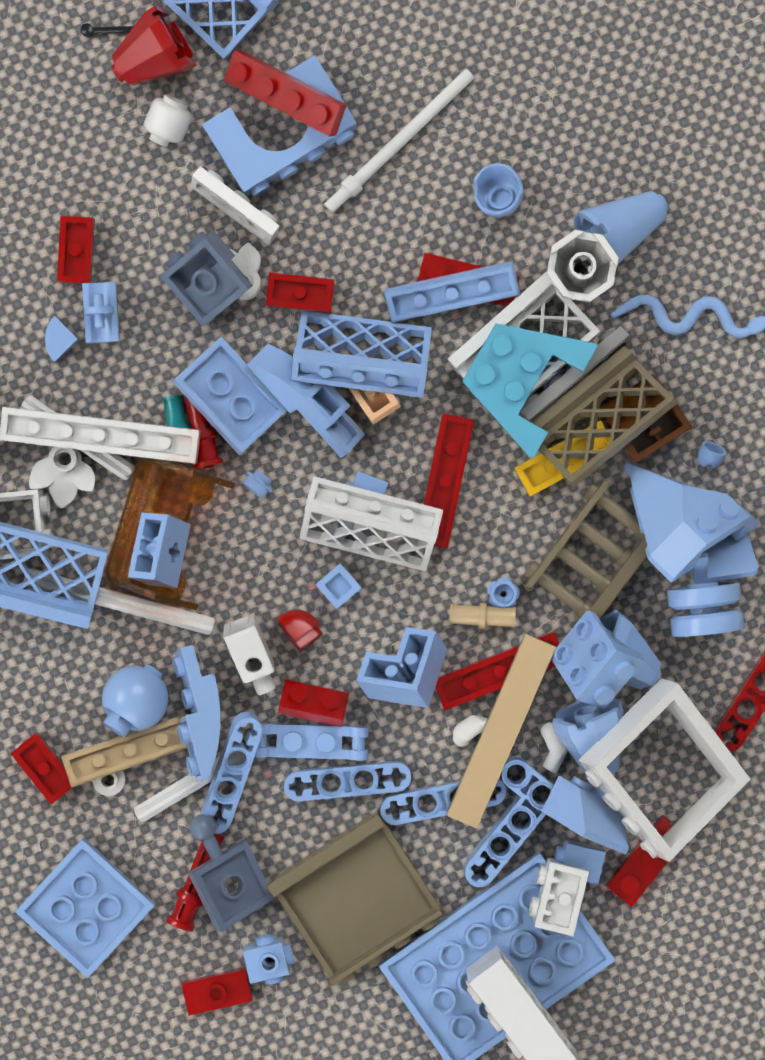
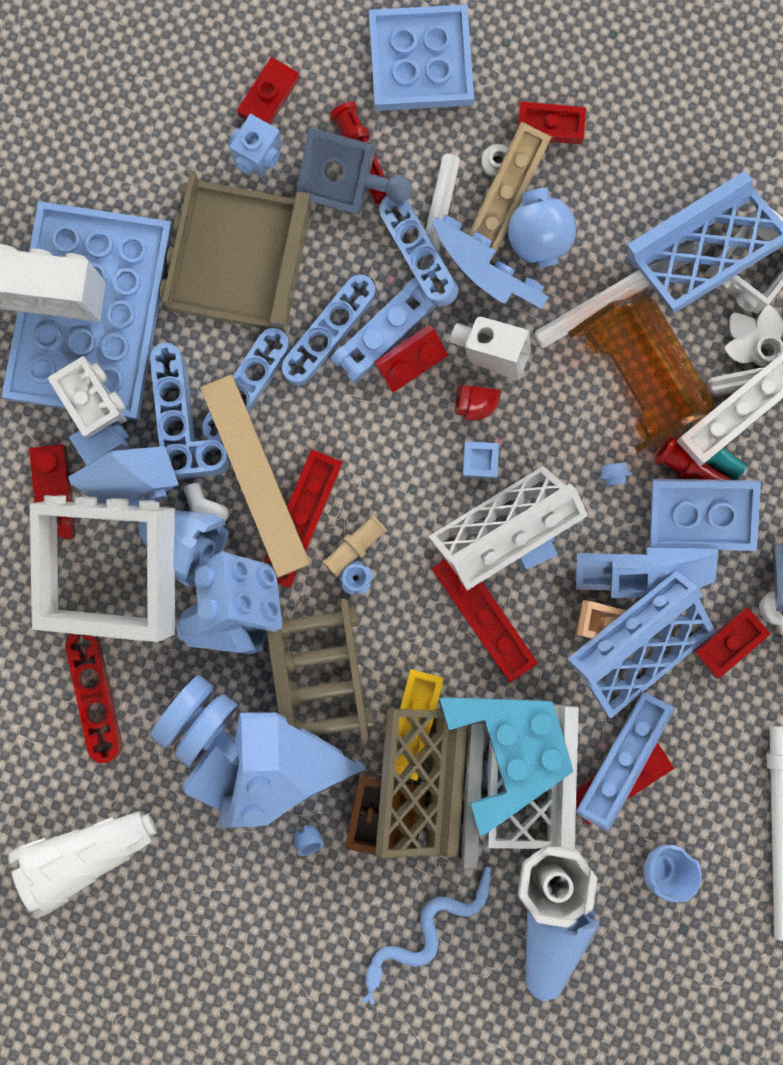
camera: 130 degrees right, 5 degrees down
(159, 550) = (637, 350): light blue brick -> none
(410, 674) = (364, 447): light blue brick -> none
(468, 729) = (279, 453): white arm -> none

